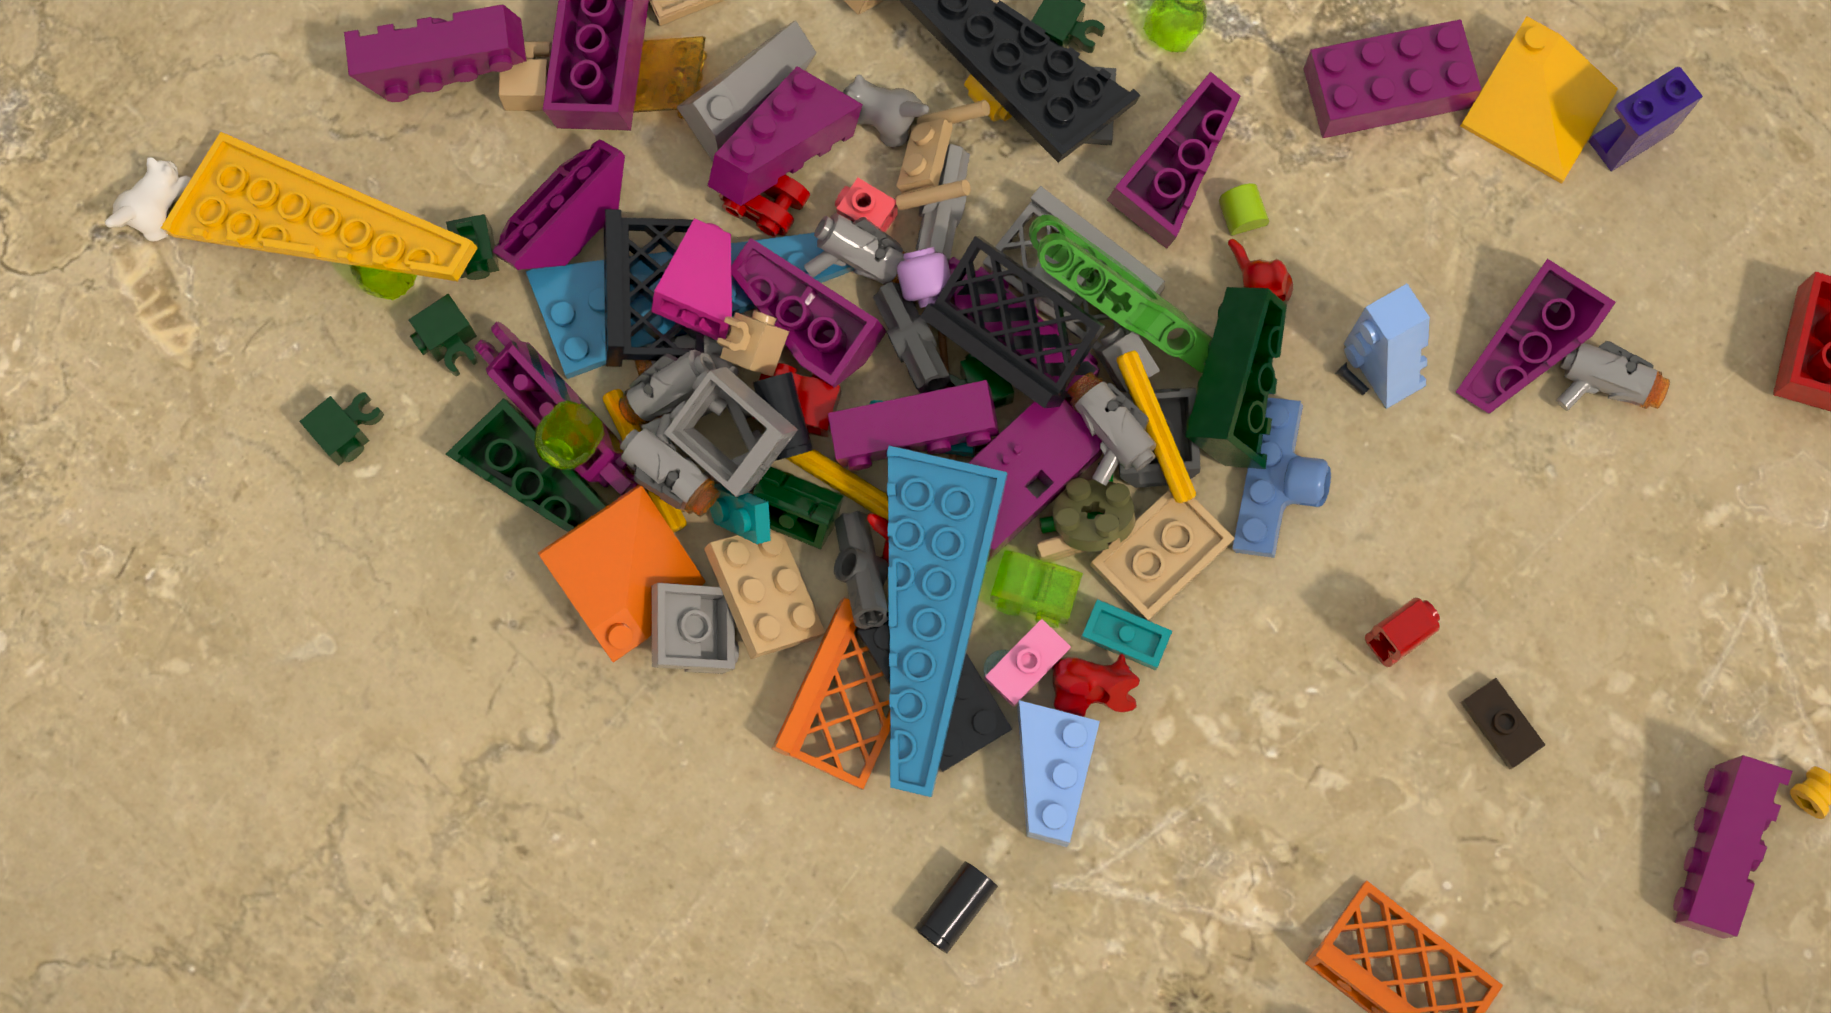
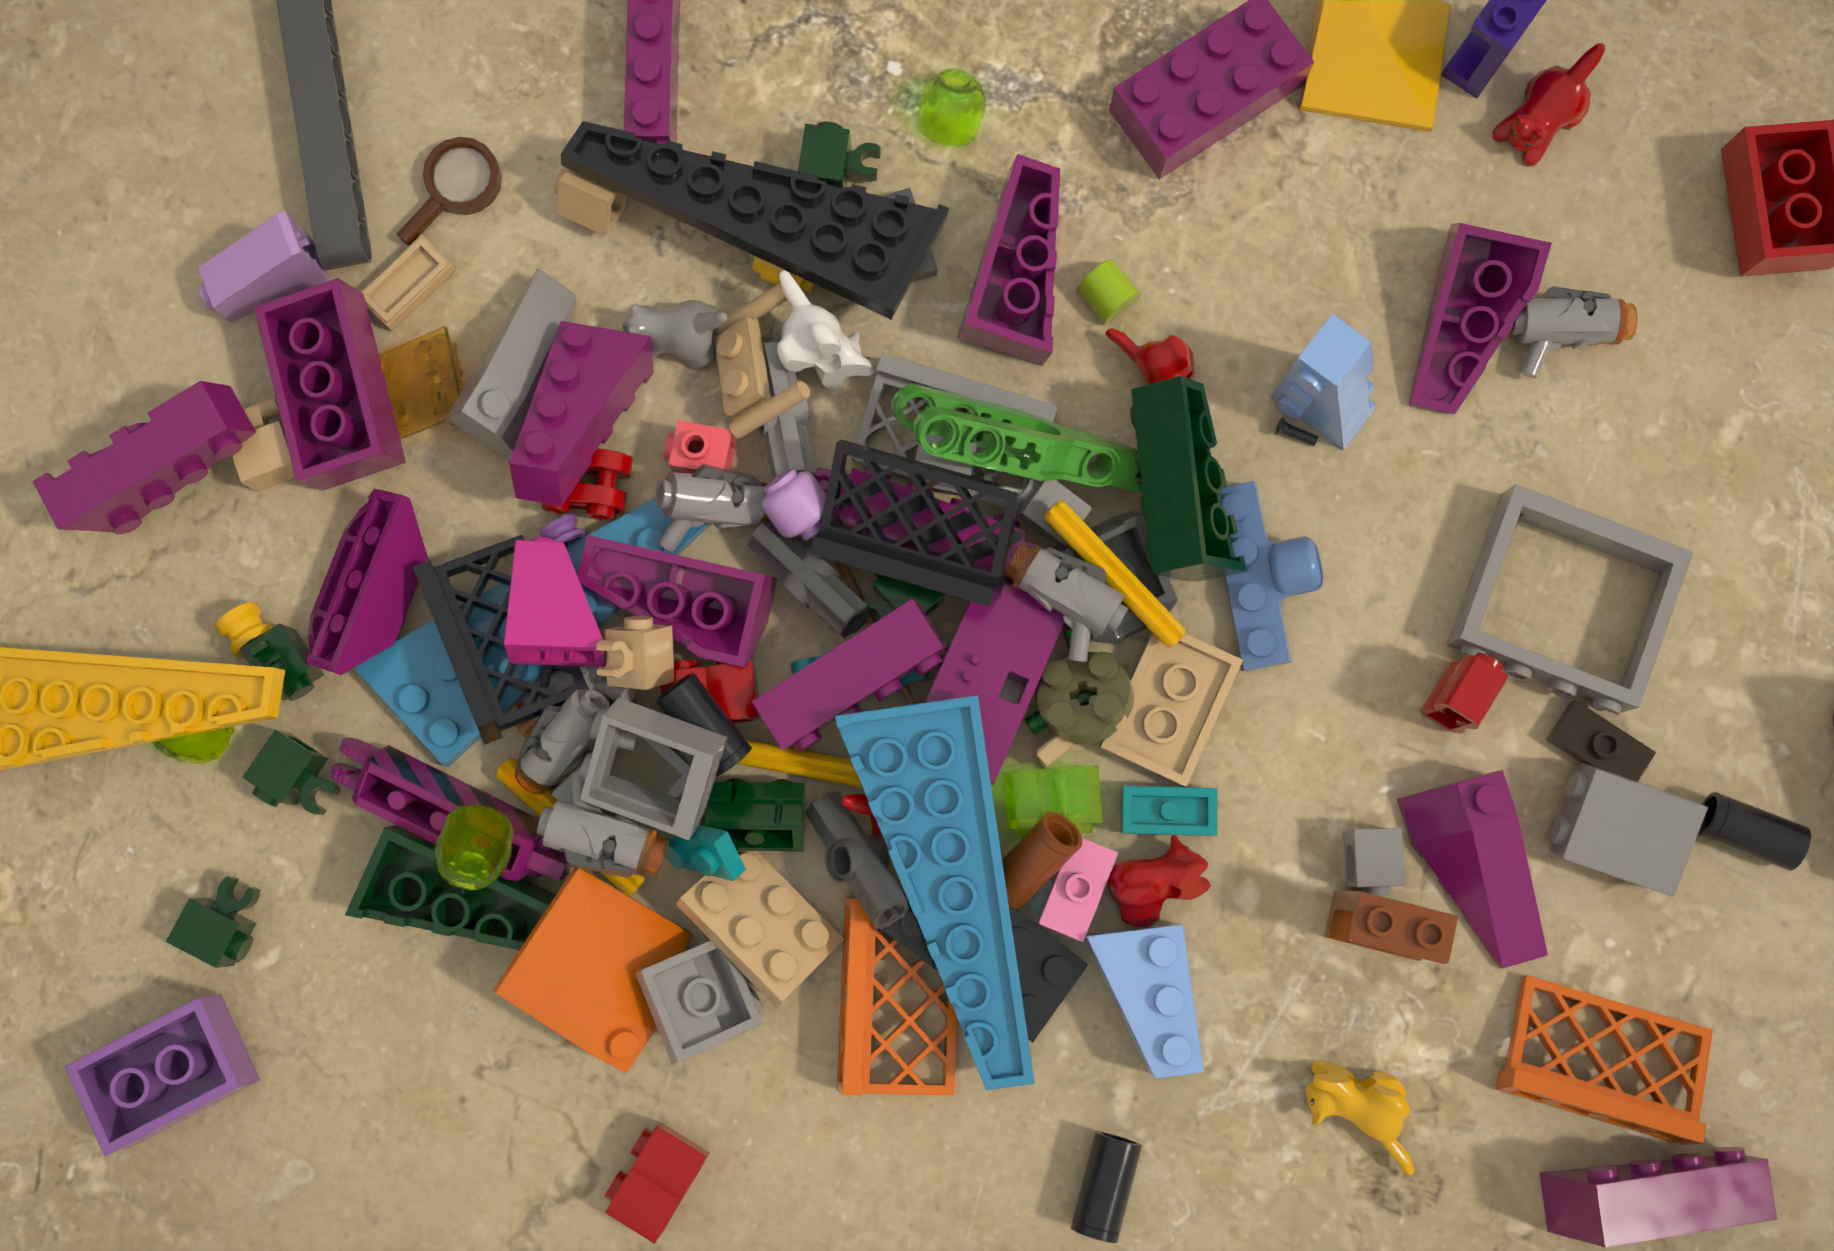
camera: 20 degrees left, 5 degrees up
(255, 521) = (162, 1073): none -> medium lavender brick
(452, 205) = (242, 626): none -> yellow wheel
(601, 759) = (656, 1181): none -> red brick
(735, 227) = (563, 530): none -> medium lavender bush
(992, 155) = (815, 339): none -> white animal
(1005, 625) = (1039, 857): none -> dark orange pin
(1195, 929) = (1371, 1104): none -> yellow animal
(1266, 788) = (1391, 926): none -> dark orange panel
(1277, 737) = (1374, 859): none -> light grey brick
(1363, 766) = (1479, 855): none -> magenta wedge
(1494, 792) = (1626, 829): none -> light grey brick
(1563, 549) = (1598, 533): none -> light grey window
(1600, 838) = (1754, 831): none -> black pin
(1672, 195) = (1554, 101): none -> red animal

